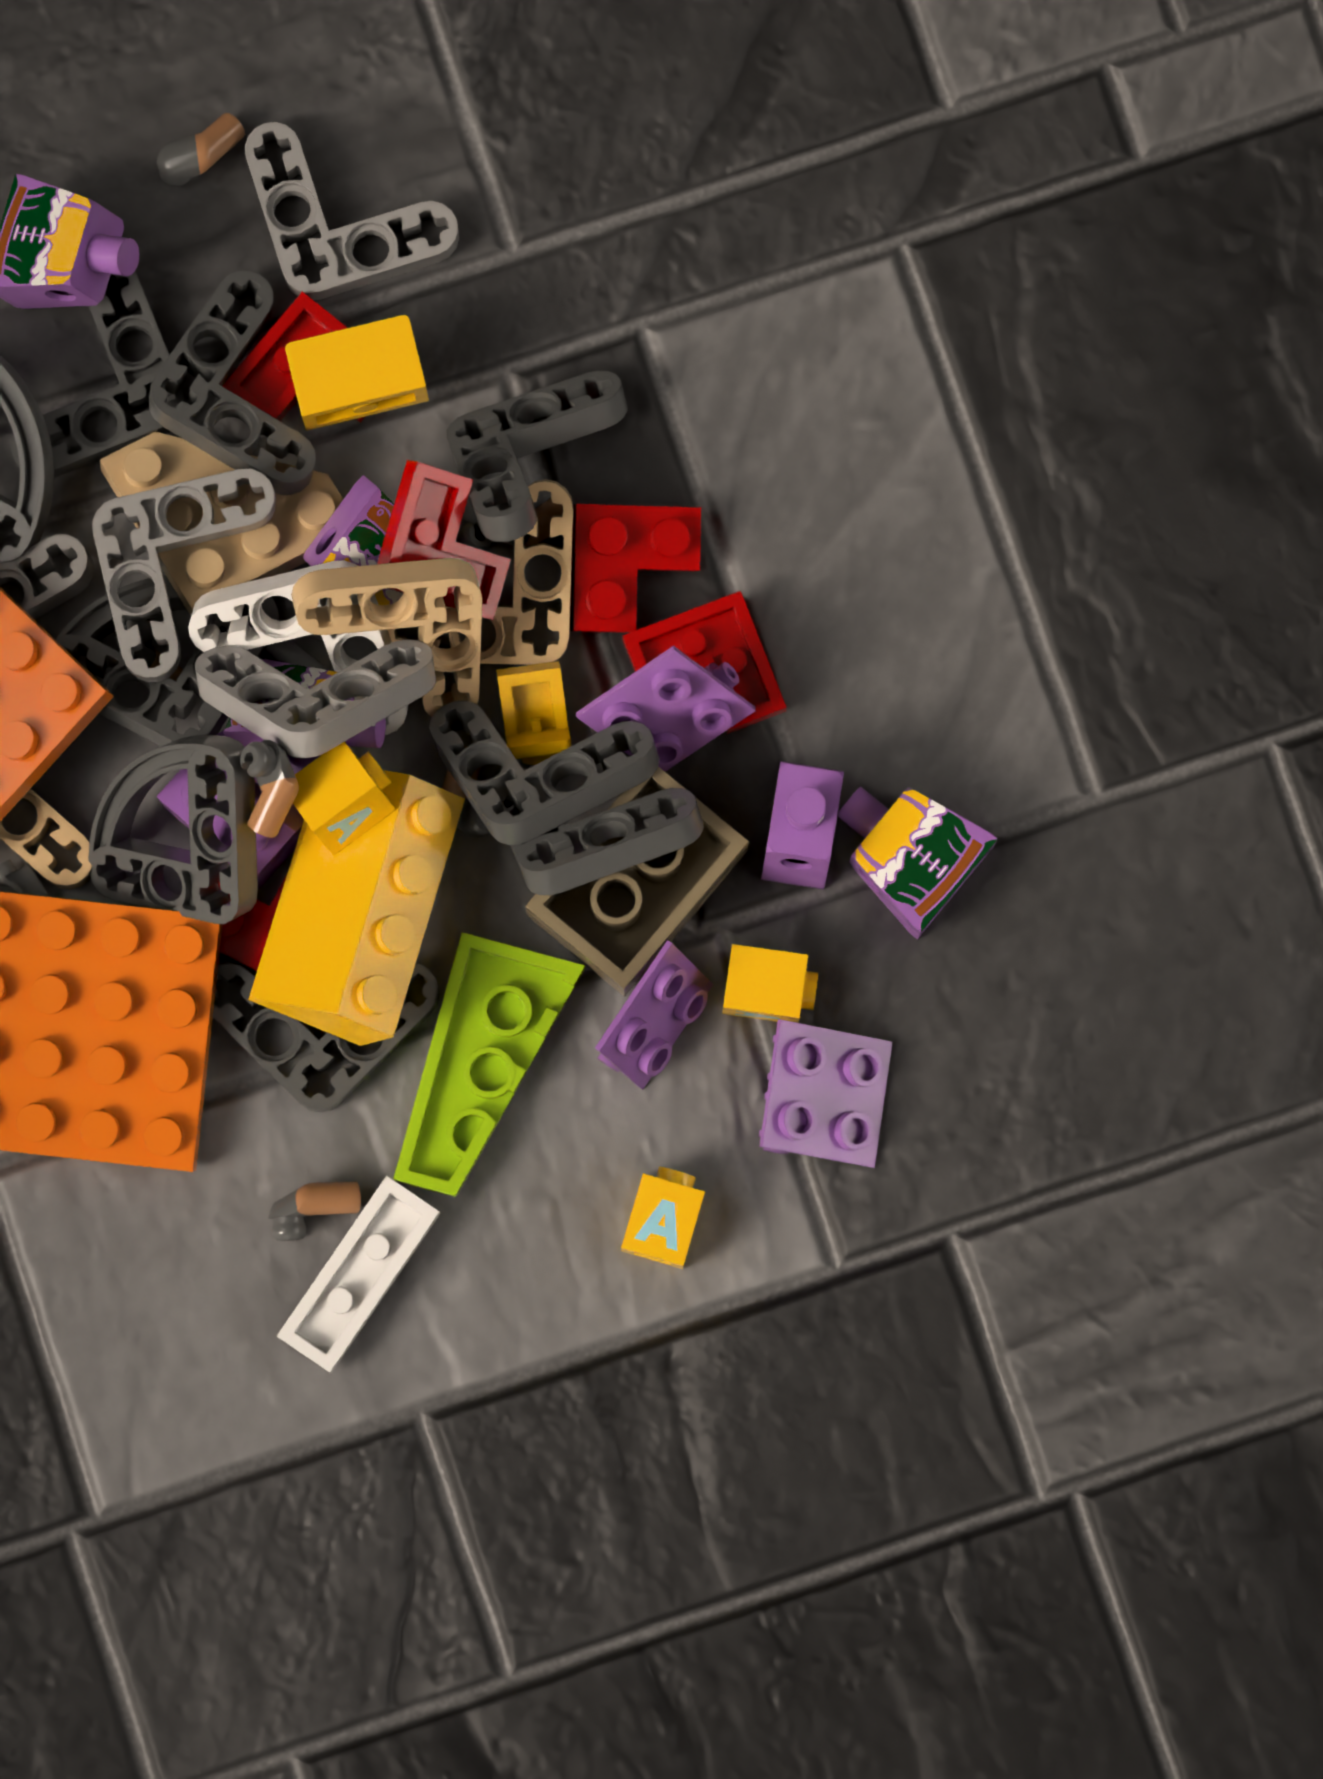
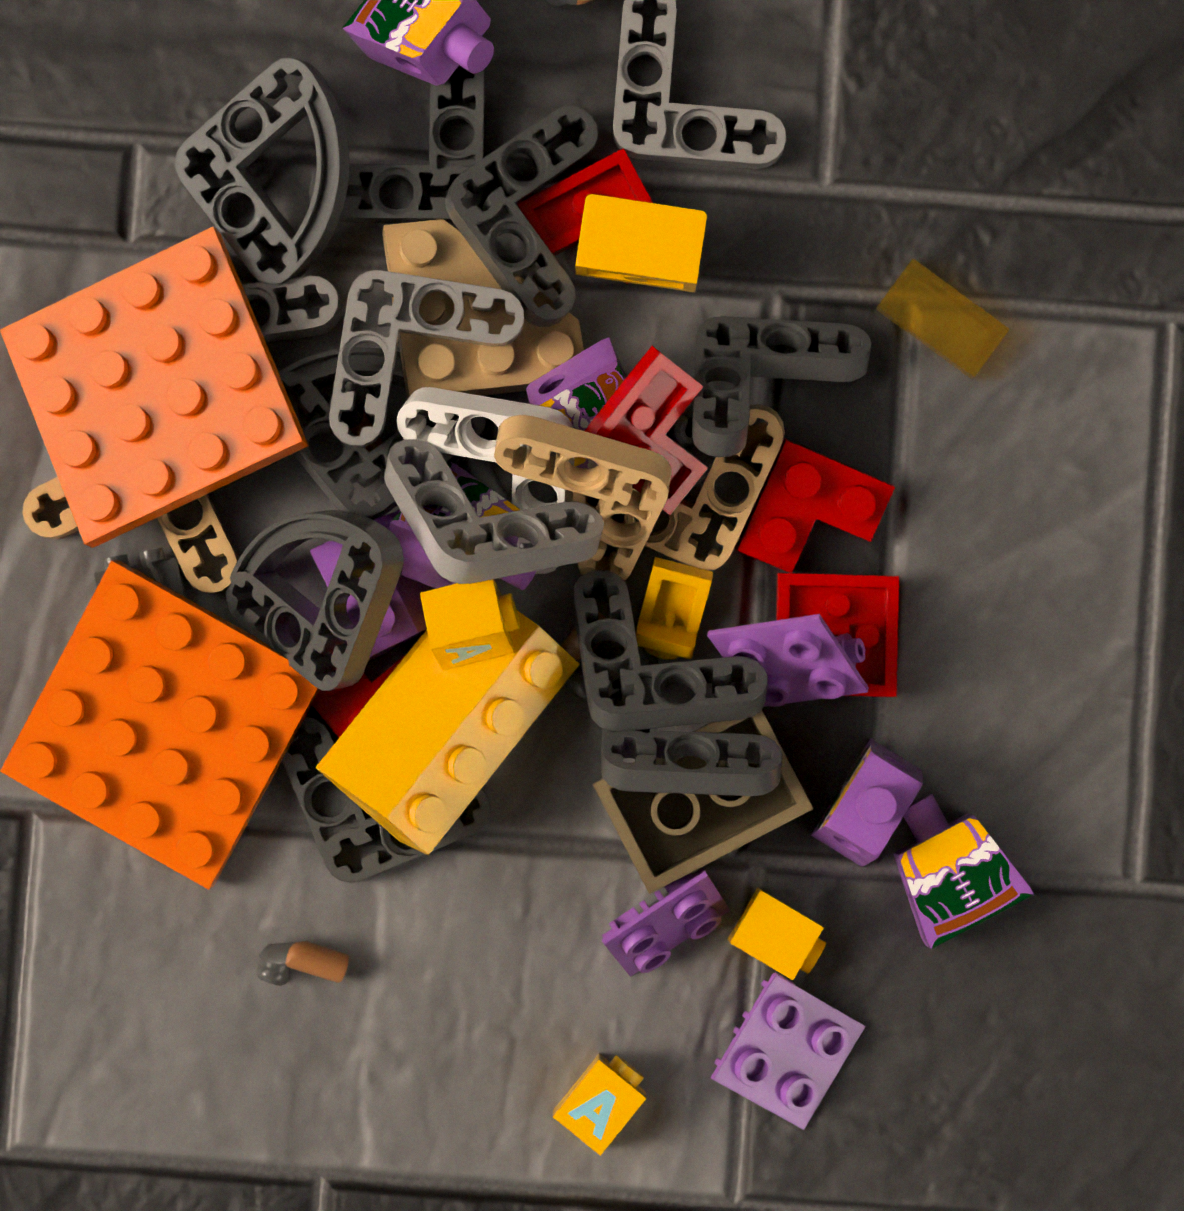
camera: 25 degrees right, 5 degrees up
(277, 781) = (417, 591): arm -> none
(358, 1274) = (316, 1038): white plate -> none
(482, 1046) = (509, 880): lime wing -> none
(680, 330) = (942, 319): none -> clear yellow tile

